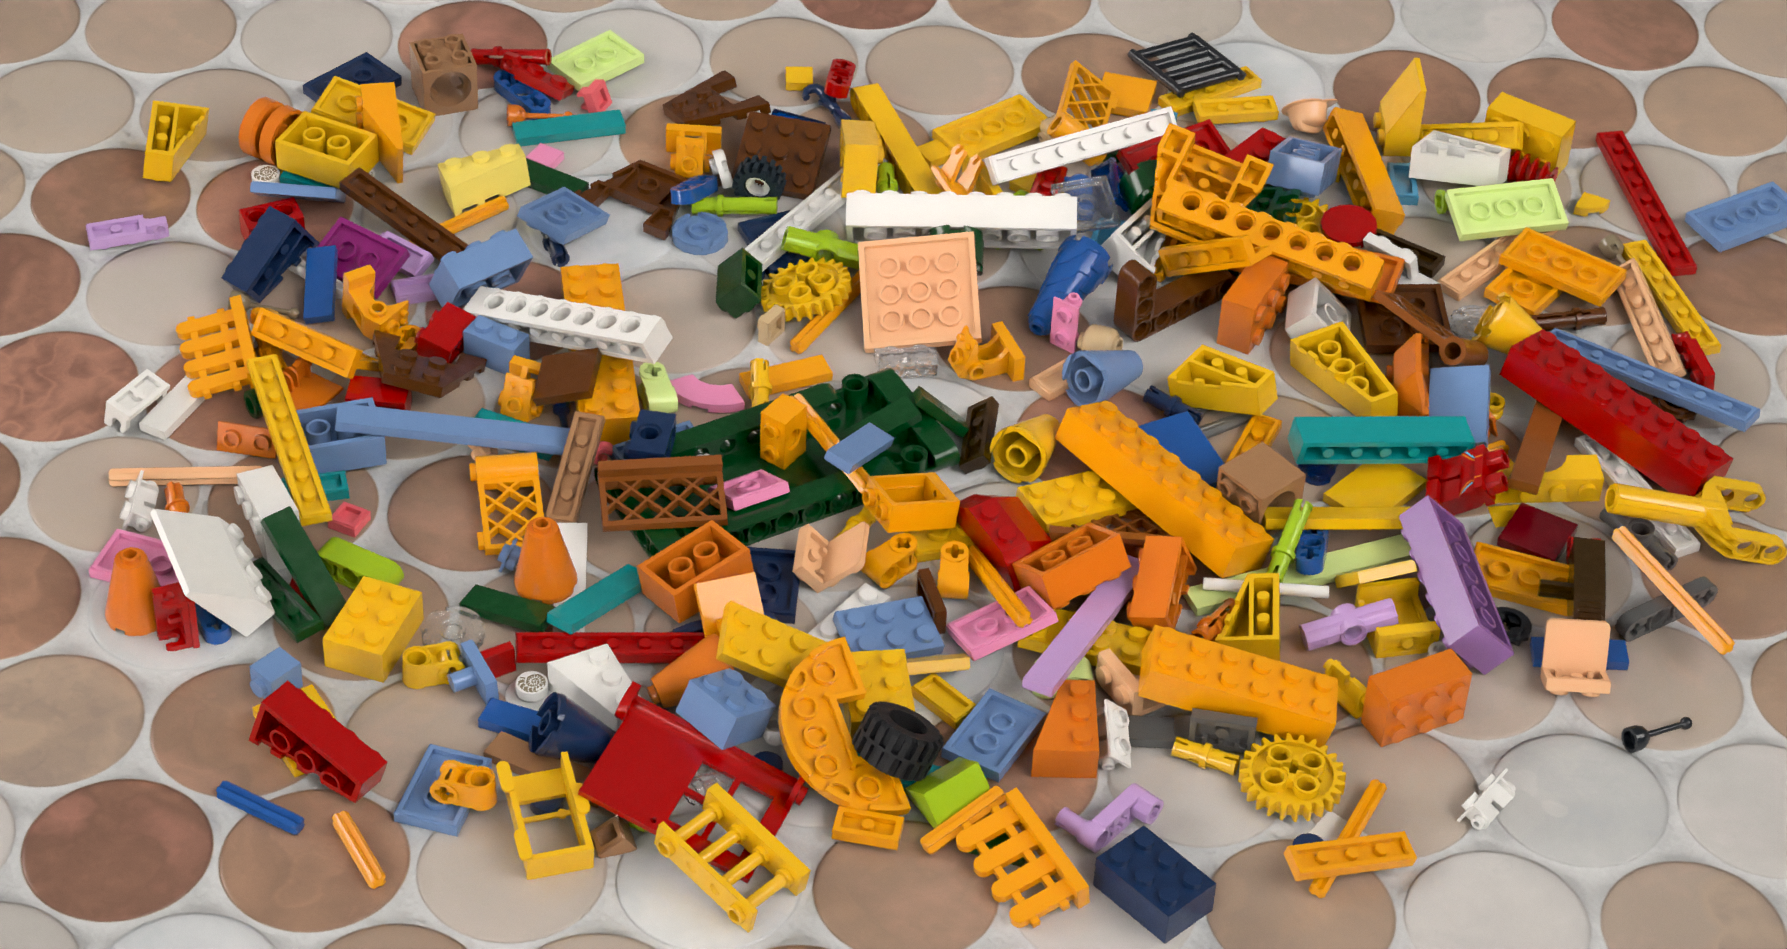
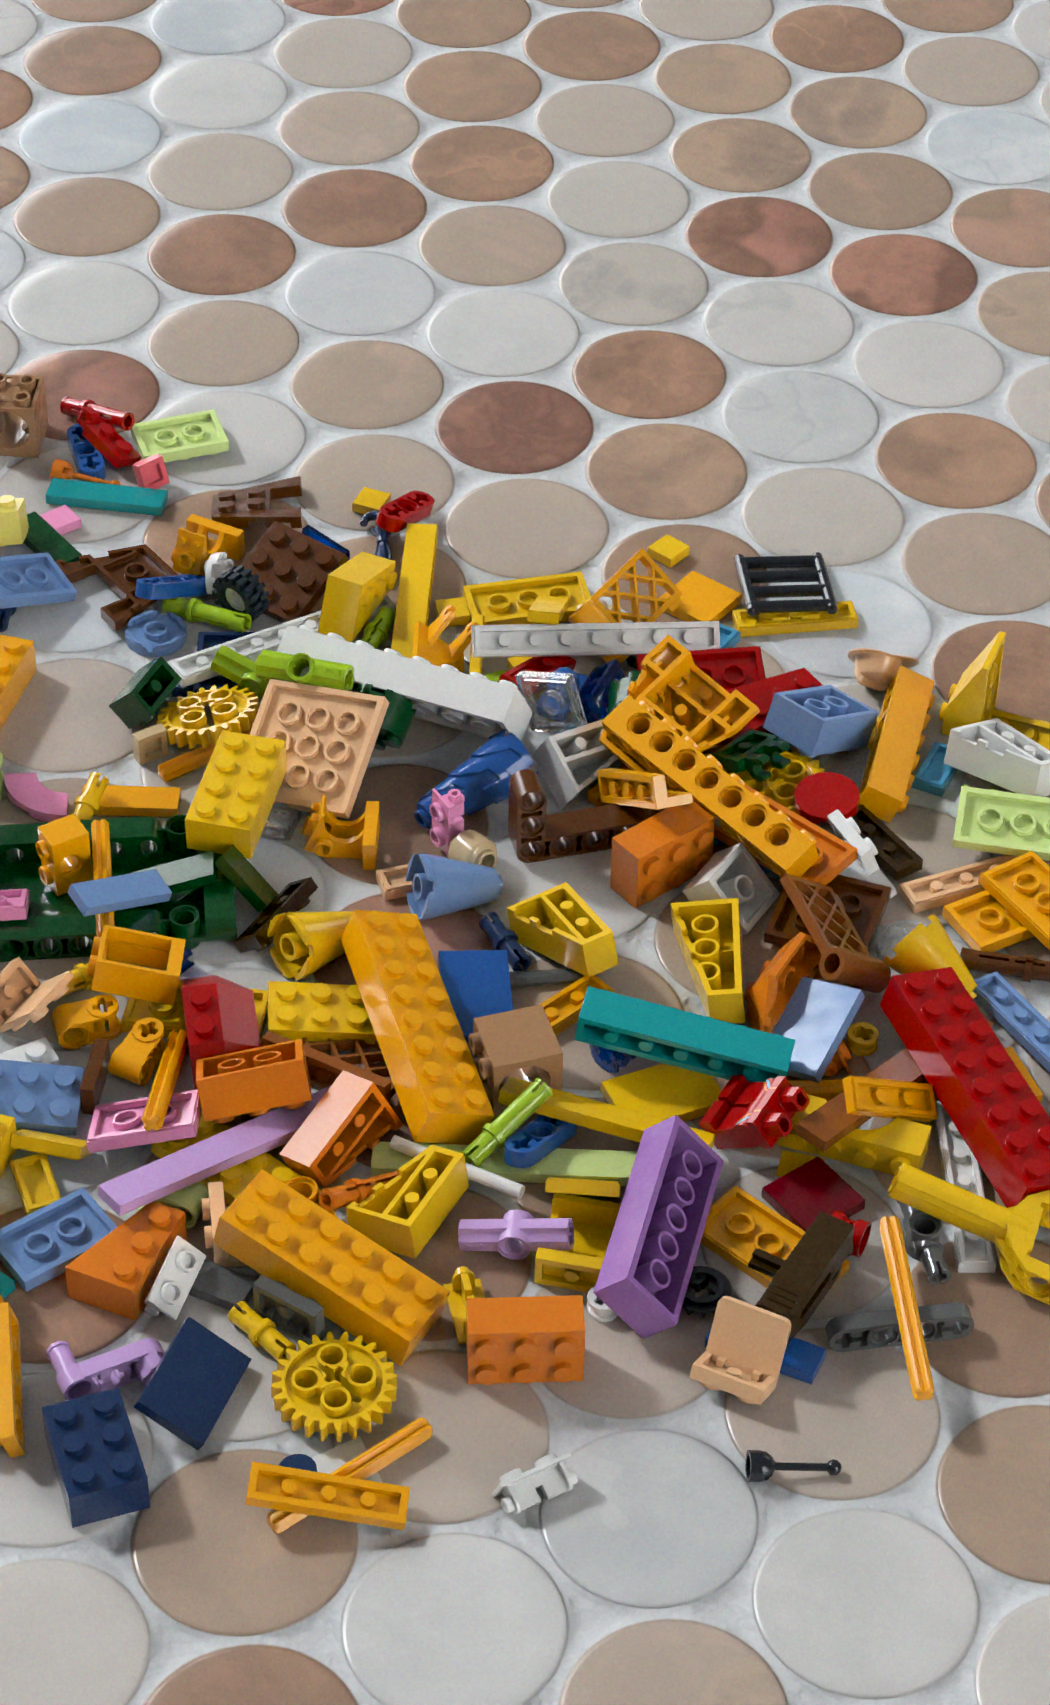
camera: 25 degrees right, 0 degrees up
(866, 228) = (289, 667): none -> lime piece
(893, 343) = (236, 793): none -> yellow brick
(1030, 130) = (547, 610): none -> yellow tile
(1069, 55) = (668, 550): none -> yellow tile
(1187, 807) = (192, 1383): none -> dark blue tile
(1236, 109) = (805, 644): yellow plate -> none
(1558, 441) = (889, 1098): none -> light orange tile

